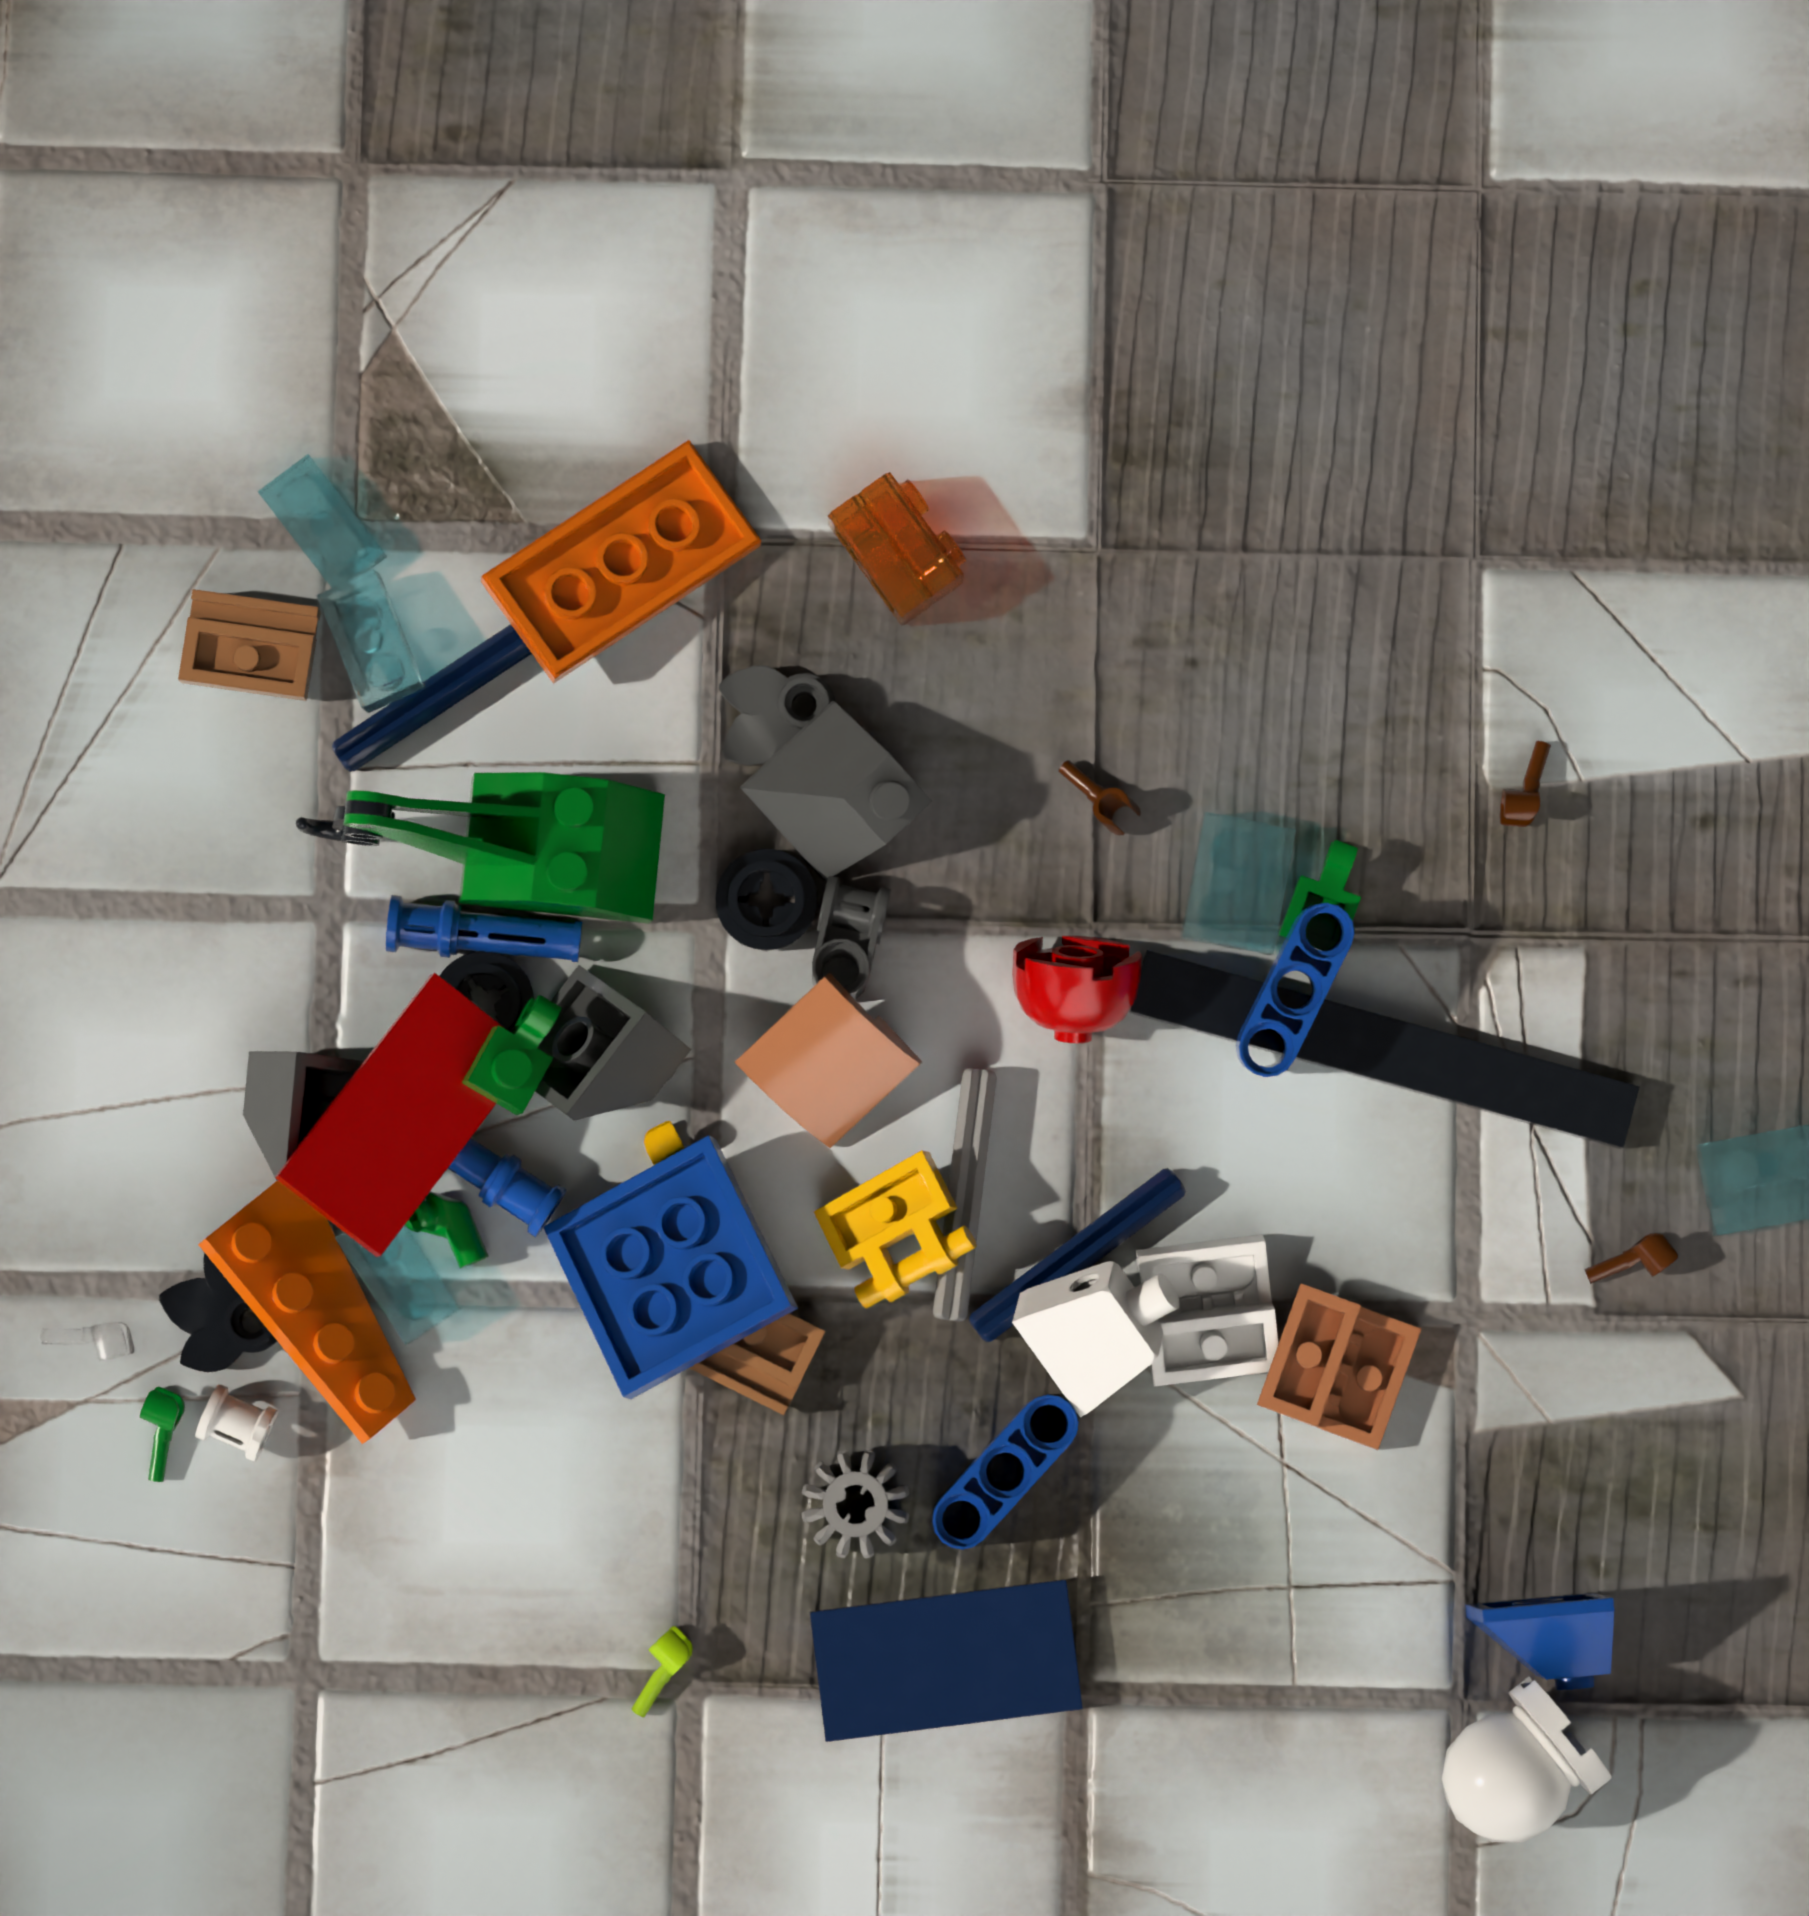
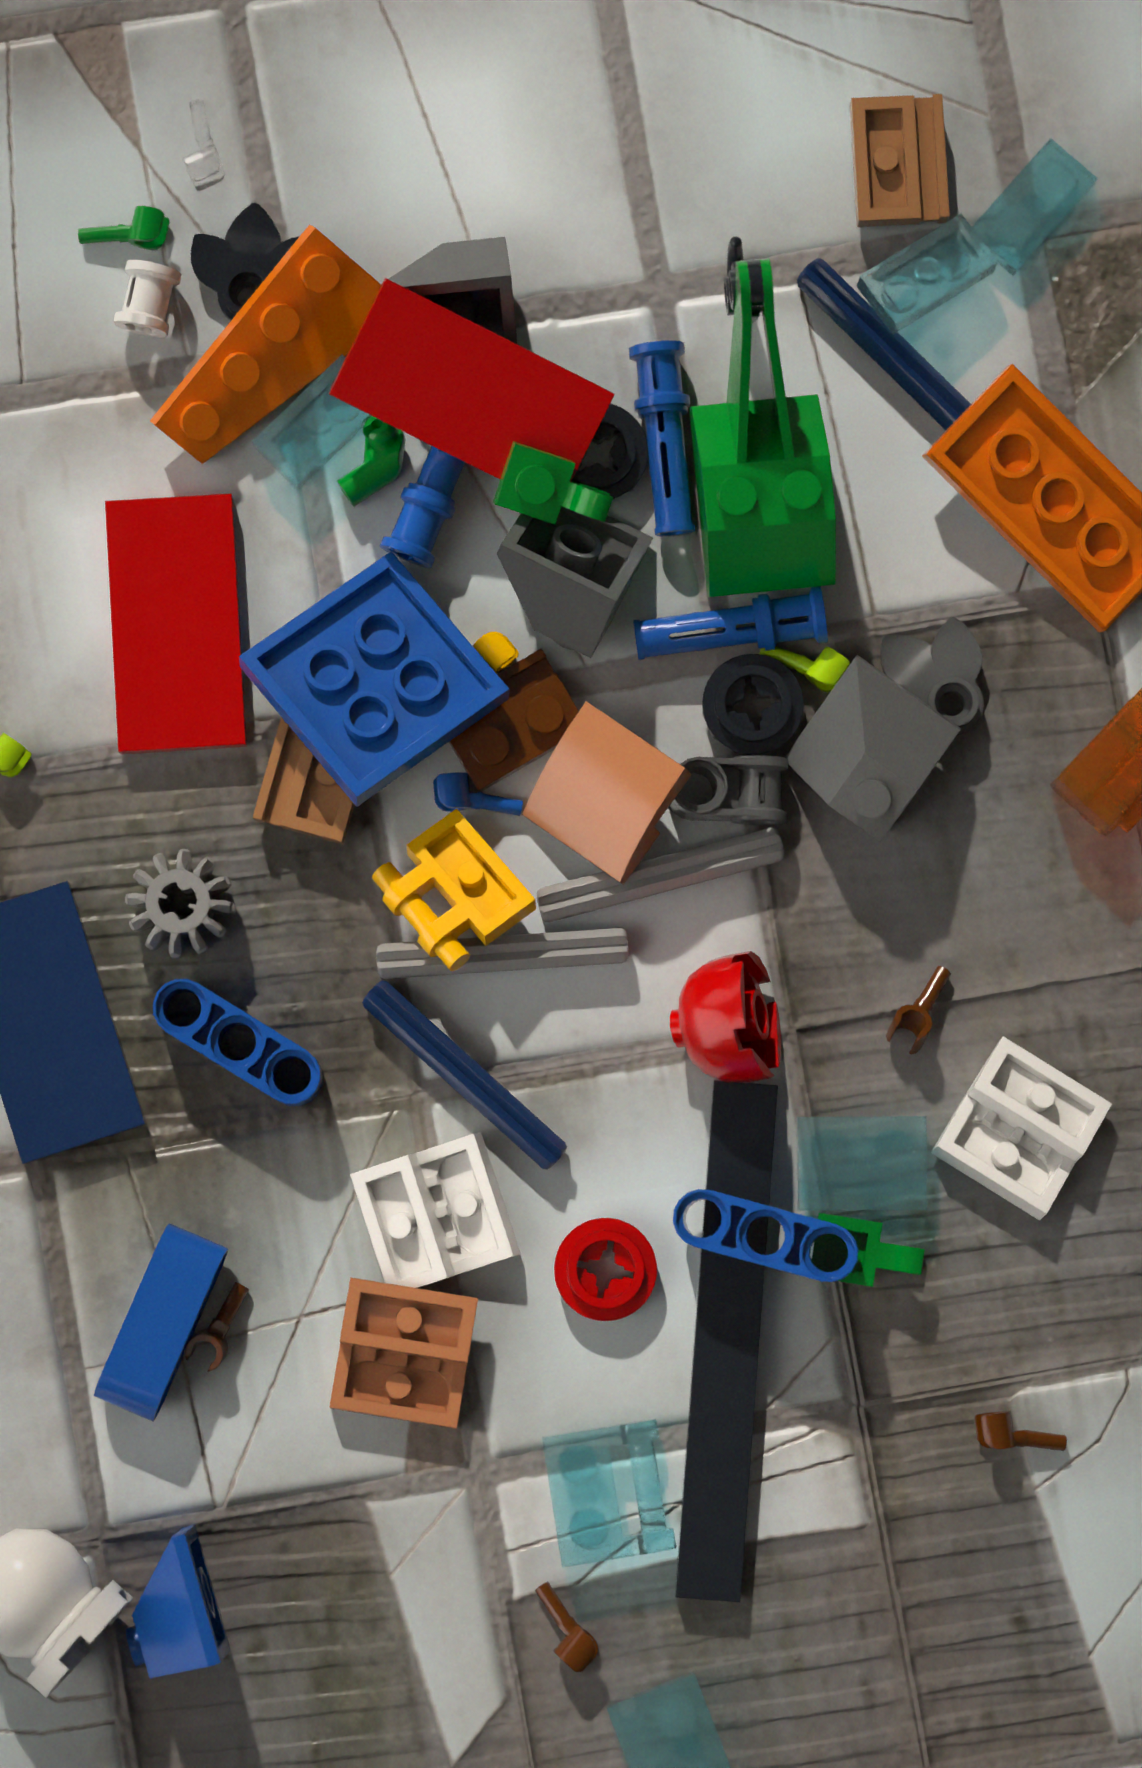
camera: 75 degrees right, 0 degrees up
(571, 1456) = (175, 624): none -> red tile
(687, 873) = (654, 639): none -> blue pin
(746, 1131) = (520, 727): none -> reddish brown plate
(748, 823) = (822, 673): none -> lime hand
(796, 1212) = (452, 792): none -> blue hand
(917, 1022) = (661, 875): none -> light grey axle
(1094, 1329) = (391, 1101): white torso -> none
(1232, 722) = (1021, 1128): none -> white slope
(1264, 1599) = (160, 1322): none -> blue beam
(1278, 1543) = (219, 1326): none -> reddish brown hand
(1321, 1142) = (622, 1295): none -> red gear
(1510, 1214) = (587, 1498): none -> clear light blue plate

